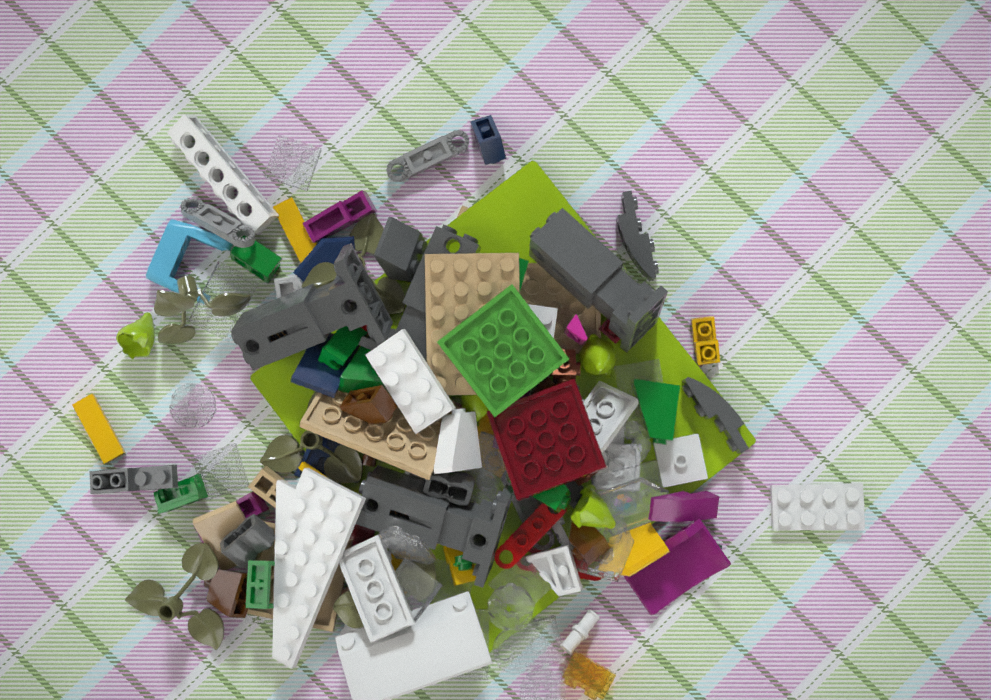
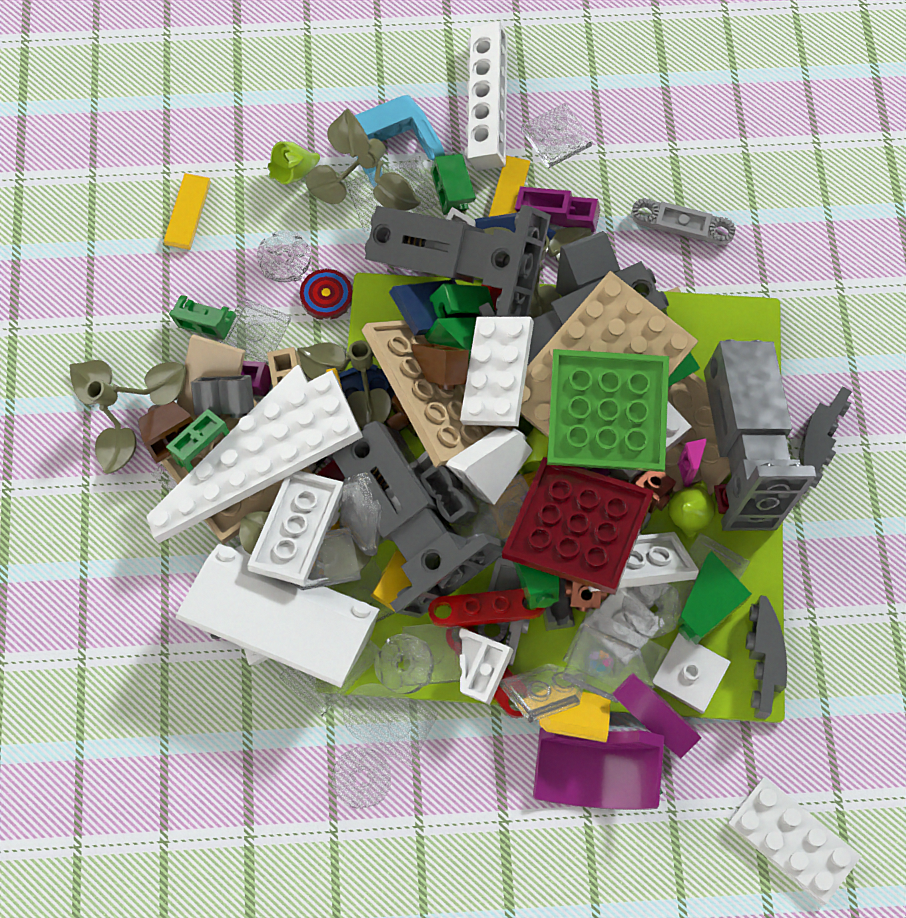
camera: 40 degrees right, 15 degrees down
(133, 479) = (175, 273): dark grey slope -> none
(218, 222) = (447, 127): light grey plate -> none
(243, 407) = (326, 294): none -> dark red tile
(462, 564) = (397, 578): green plate -> none
(488, 140) = (750, 251): dark blue slope -> none
(580, 632) = (449, 750): white pin -> none
(587, 543) = (534, 660): reddish brown slope -> none
(587, 675) = (420, 796): clear yellow brick -> none
(592, 510) = (564, 633): lime hat -> none
(705, 340) = (810, 586): yellow slope -> none

